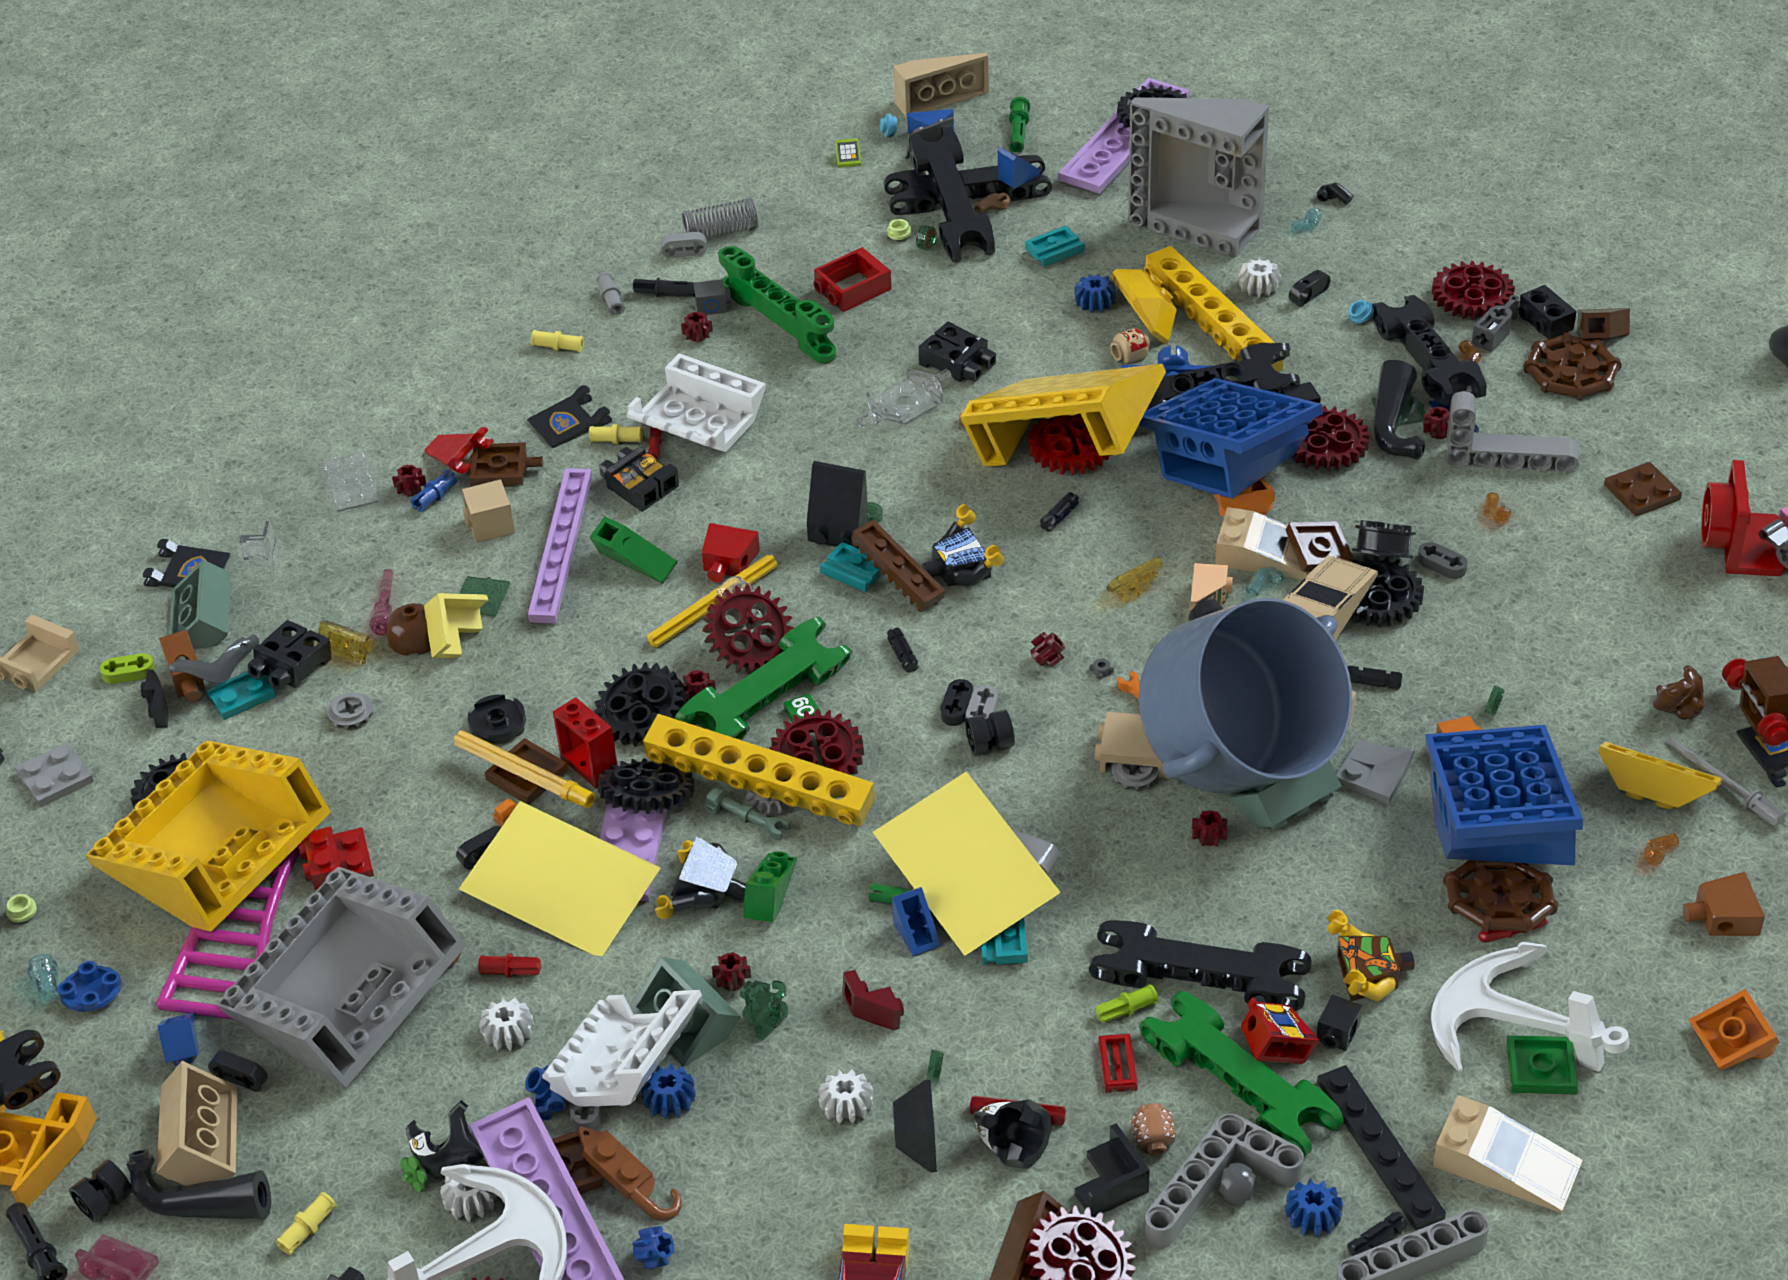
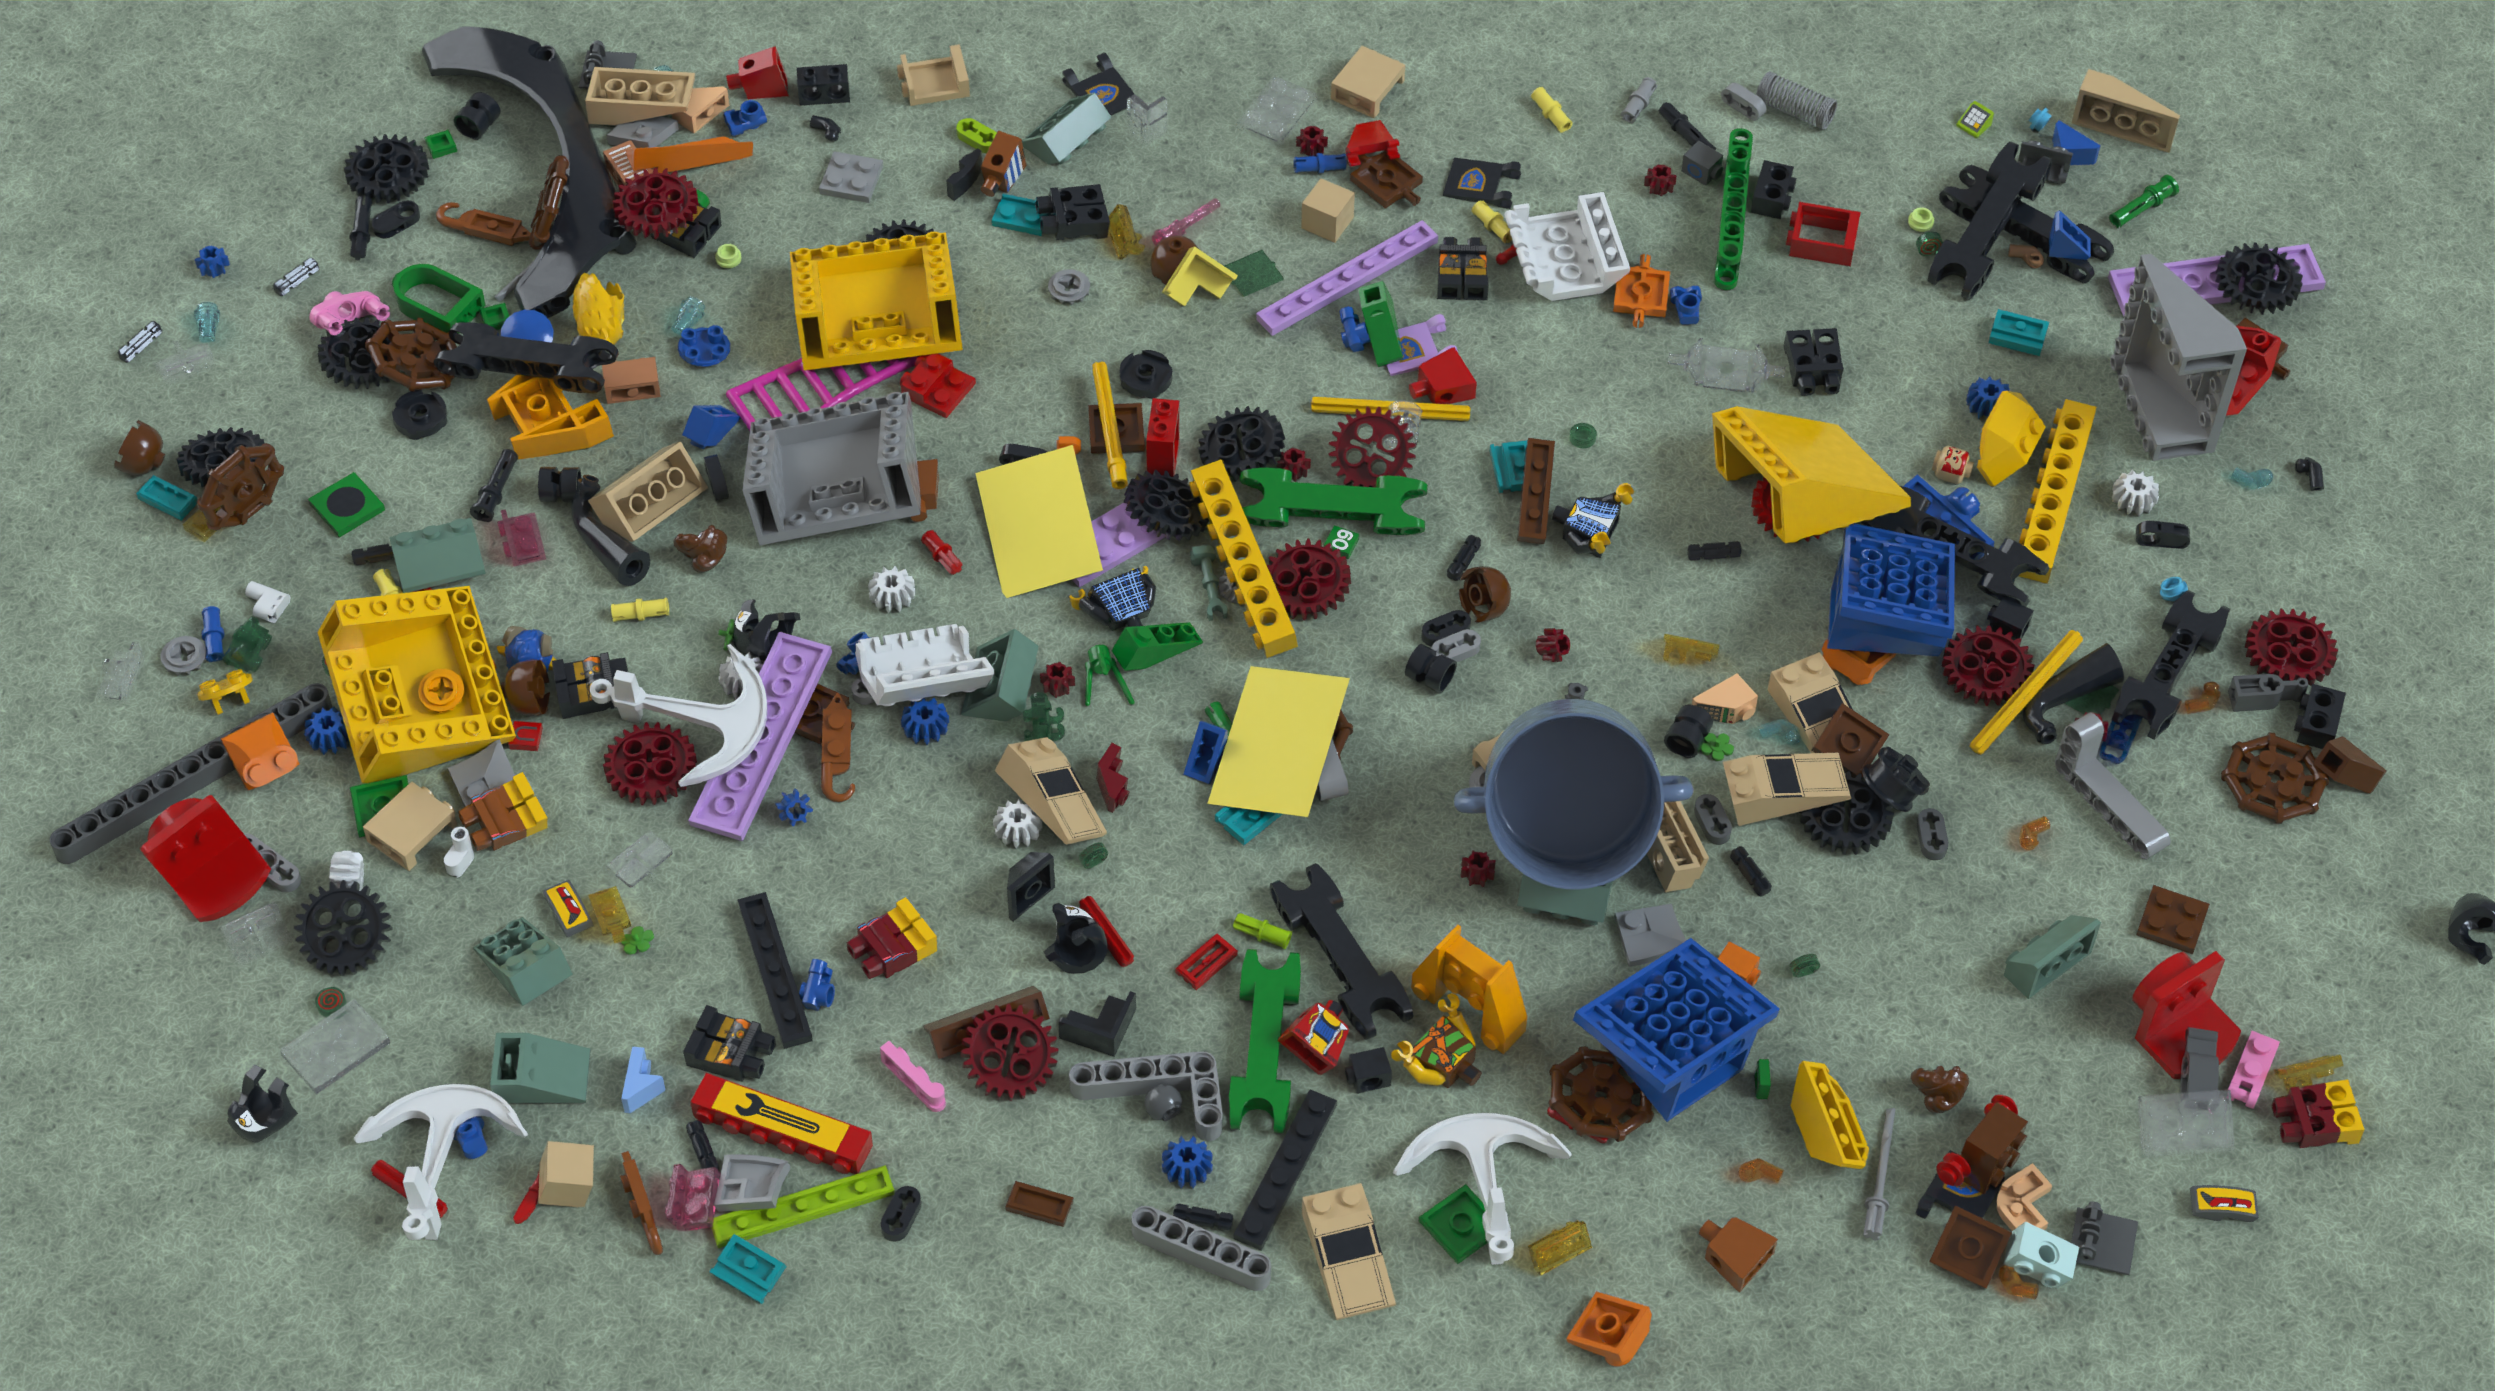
camera: 45 degrees right, 10 degrees up
(70, 1052) = (631, 380): none -> nougat brick
(223, 667) = (1024, 186): dark grey piece -> none
(304, 1129) = (704, 550): none -> reddish brown hair
(398, 415) = (1366, 81): none -> tan panel
(619, 573) = (1355, 332): none -> blue plate
(678, 547) = (1418, 345): none -> lavender flag
(747, 931) = (1101, 663): none -> green plant
(783, 274) = (1773, 189): none -> black brick
(785, 400) = (1642, 292): none -> orange plate
(824, 383) = (1687, 303): none -> blue plate
(832, 1045) = (1051, 789): none -> tan slope
(836, 503) = (1546, 408): black slope -> none
(953, 651) = (1485, 587): none -> reddish brown cylinder
(1153, 1128) = (1163, 1020): nougat head -> none
(1328, 883) = (1479, 979): none -> light orange wedge
(1375, 431) = (2026, 692): none -> yellow axle
(1581, 788) = (1762, 1079): none -> green tile
(1619, 560) = (2051, 954): none -> sand green slope
(1624, 1009) = (1559, 1246): none -> clear yellow plate

